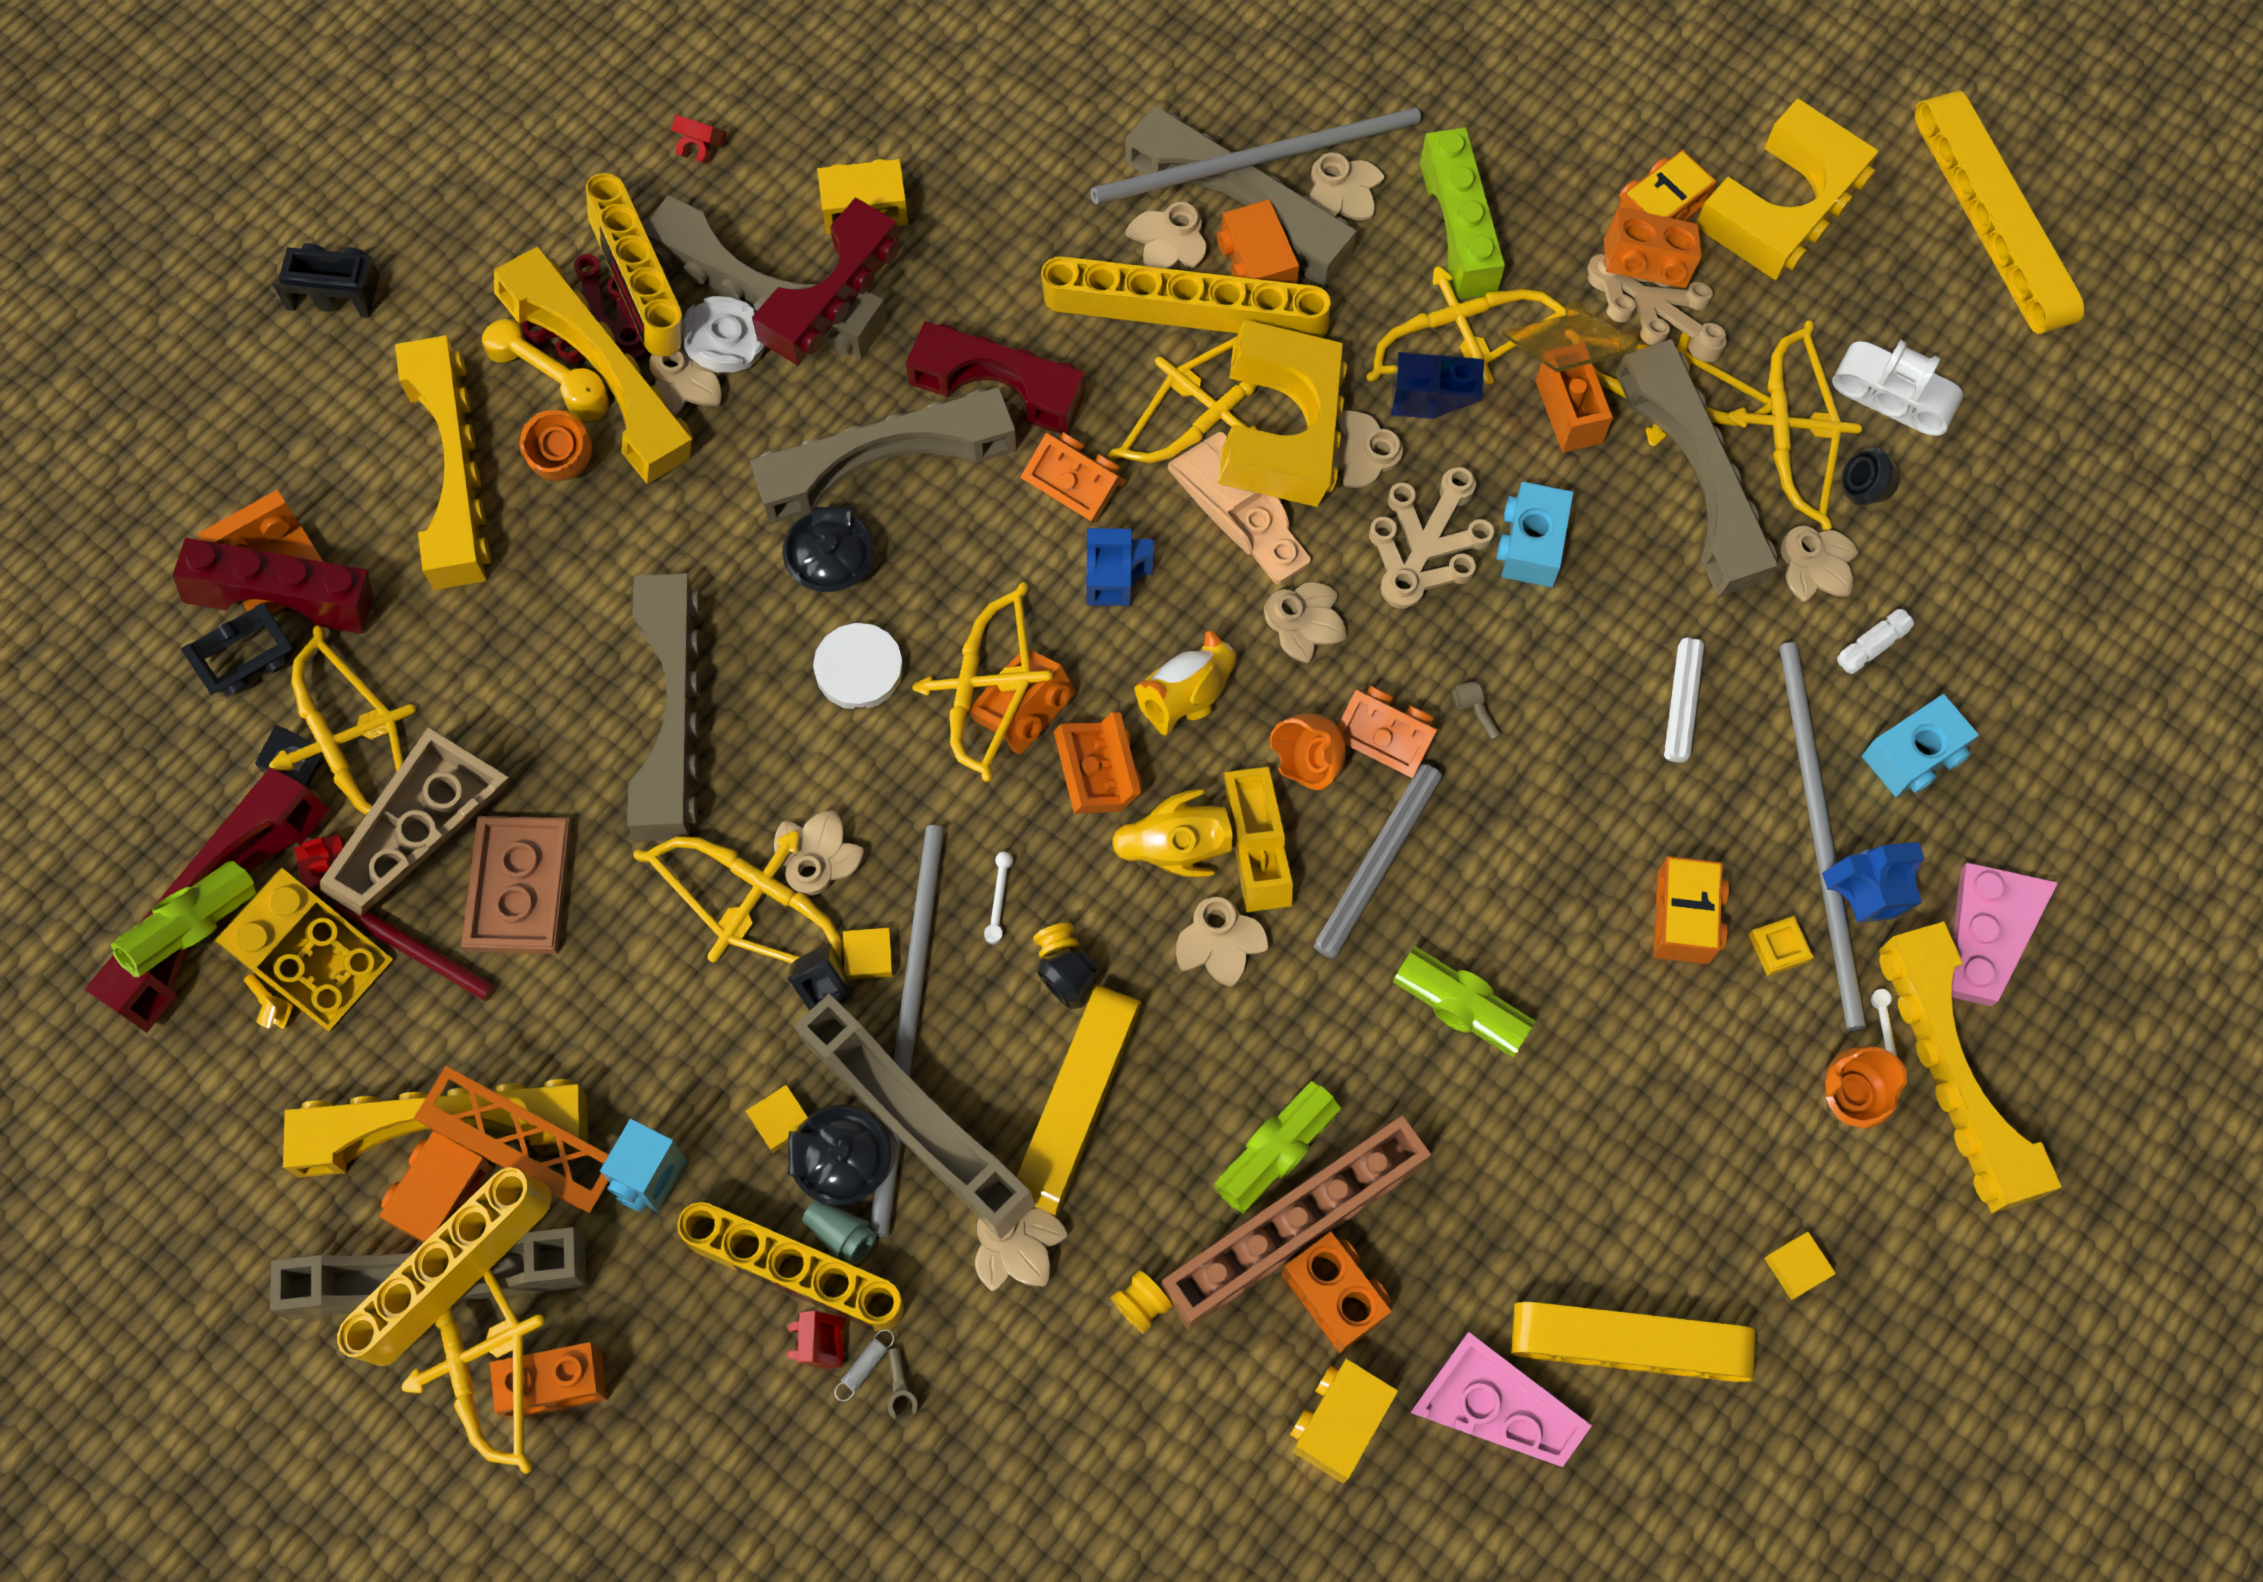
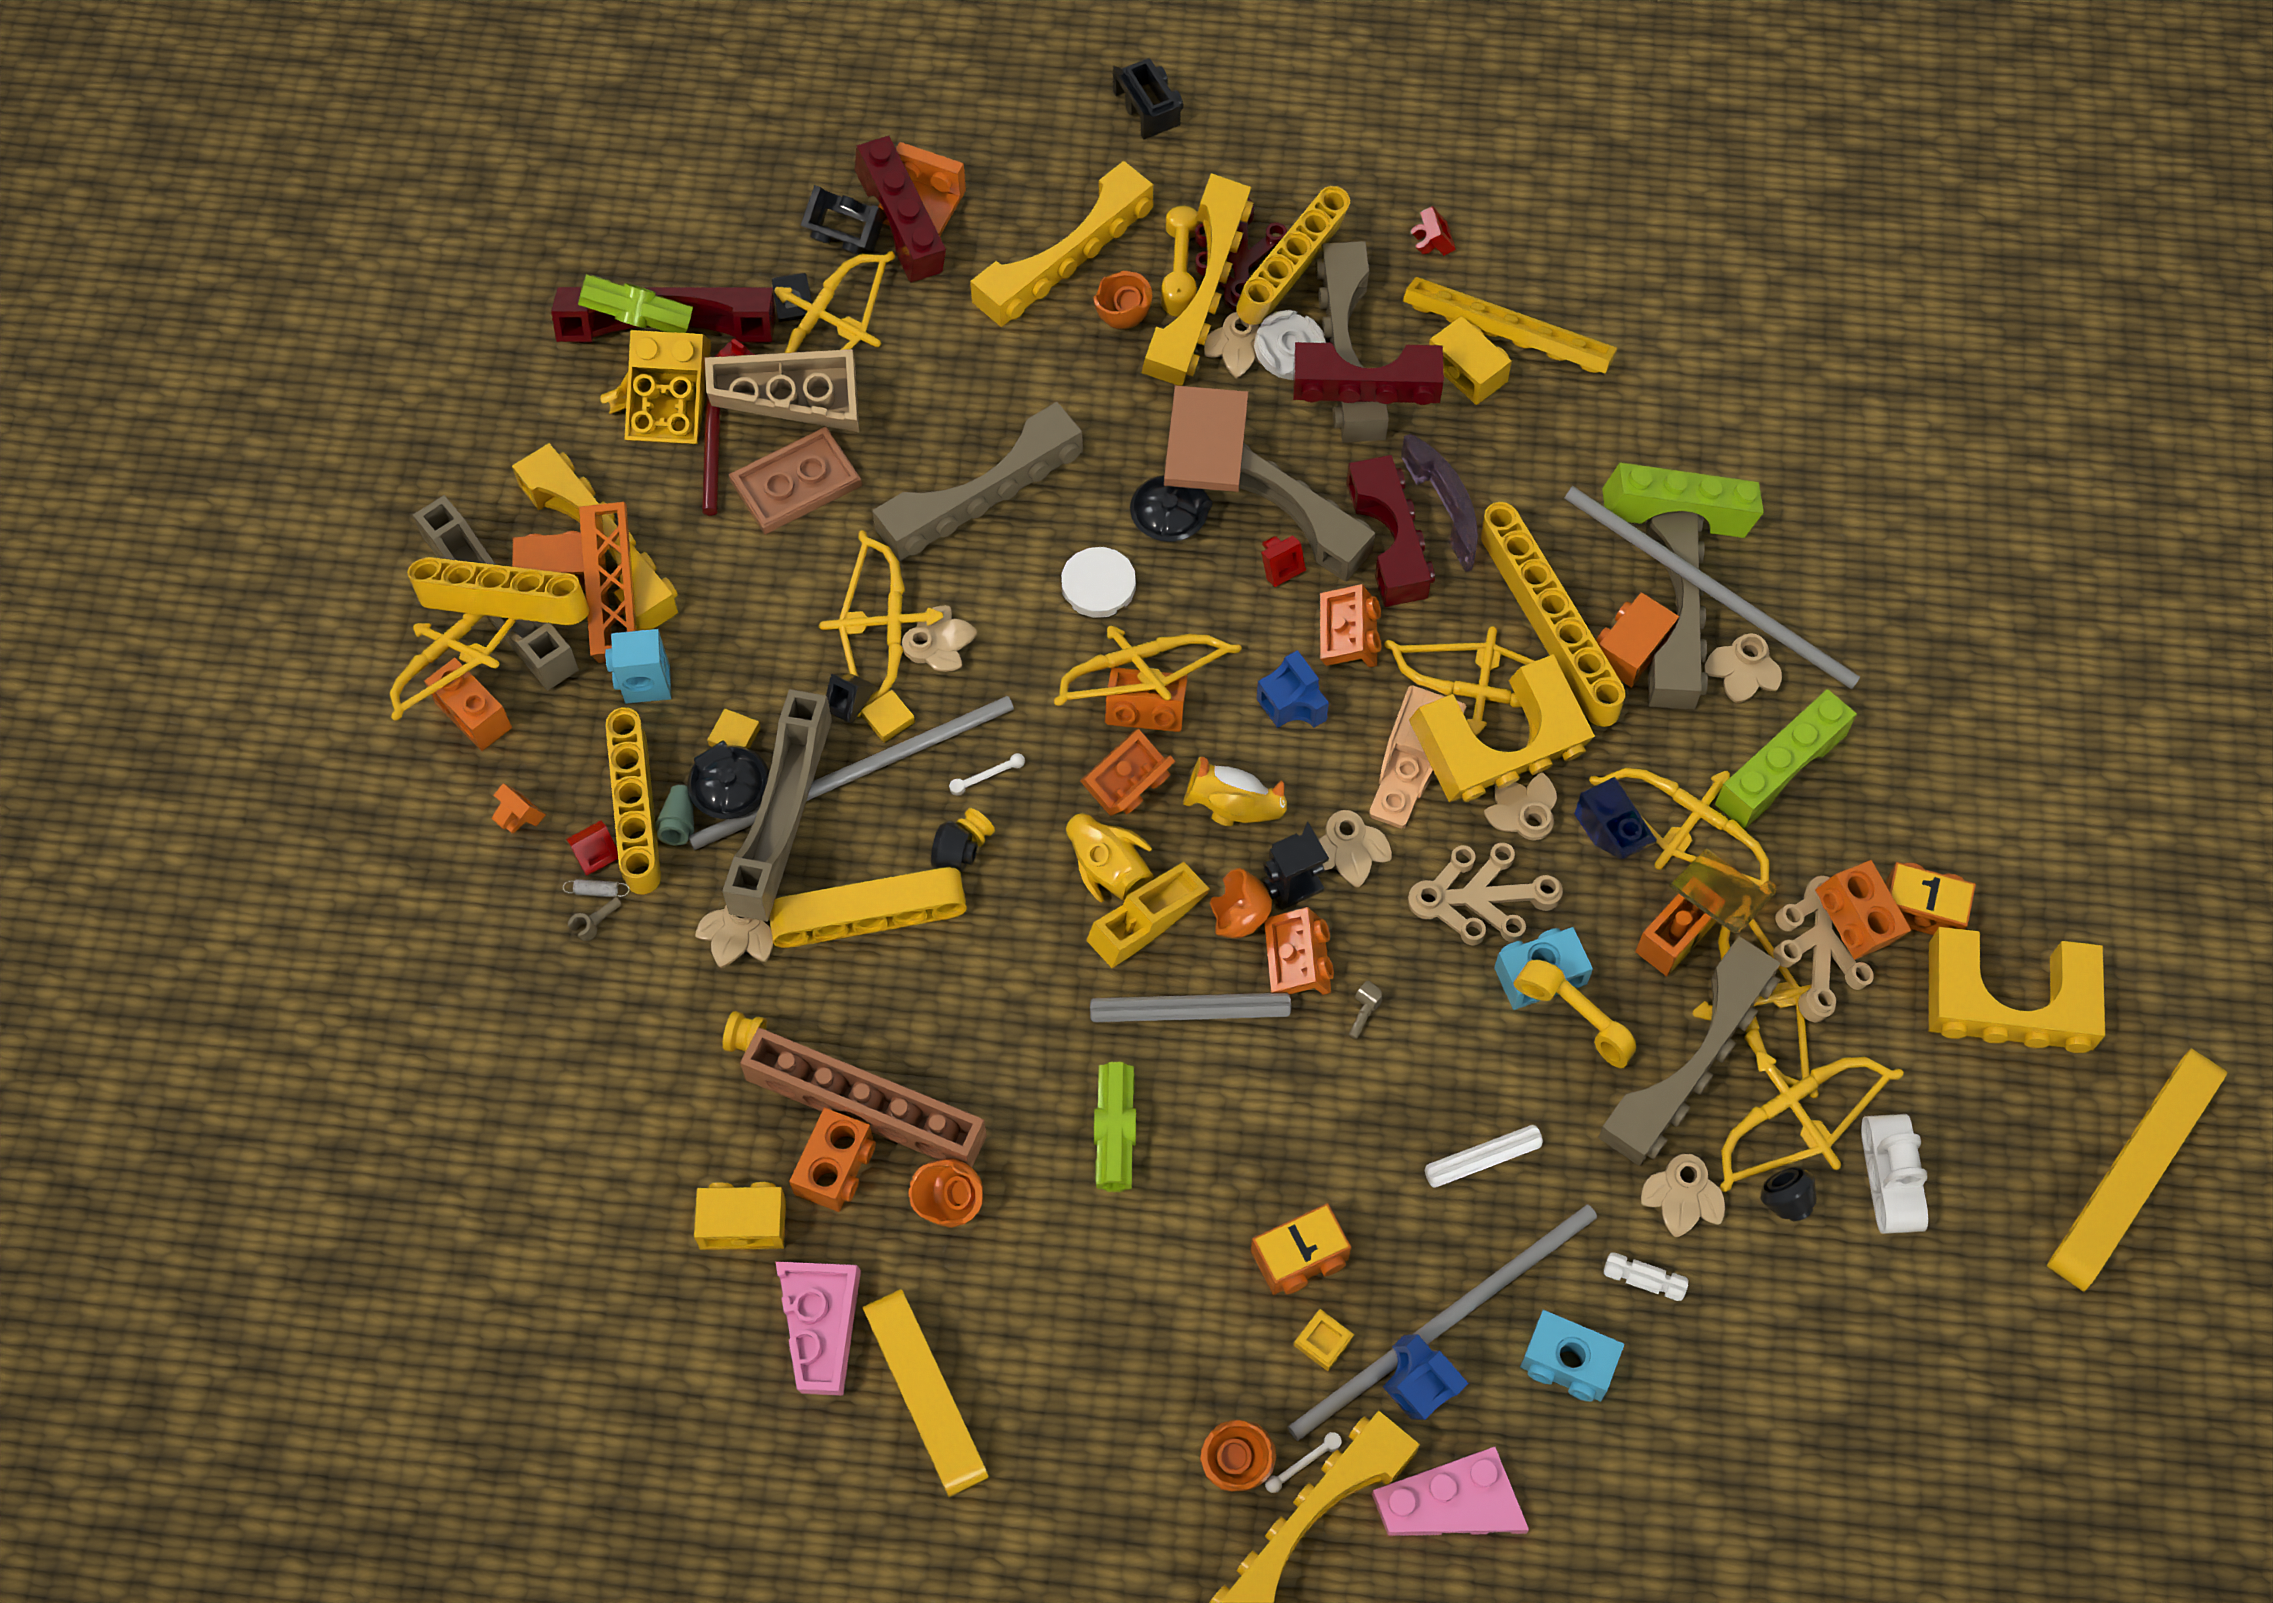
camera: 60 degrees right, 5 degrees down
(715, 1397) = (515, 809): none -> orange tile
(786, 466) = (1206, 438): none -> nougat tile
(860, 134) = (1521, 329): none -> yellow plate
(958, 487) = (1282, 559): none -> red tile
(998, 300) = (1427, 464): none -> slope
(1131, 137) = (1646, 491): none -> lime arch
(1166, 241) = (1598, 573): tan plate -> none
(1222, 947) = (1047, 939): tan plate -> none
(1277, 1147) = (916, 1060): lime piece -> none
(1308, 670) = (1294, 868): none -> black window
(1444, 1197) = (946, 1192): none -> orange hair
(1571, 533) = (1543, 980): none -> yellow piece
(1799, 1265) = (1066, 1489): yellow tile -> none

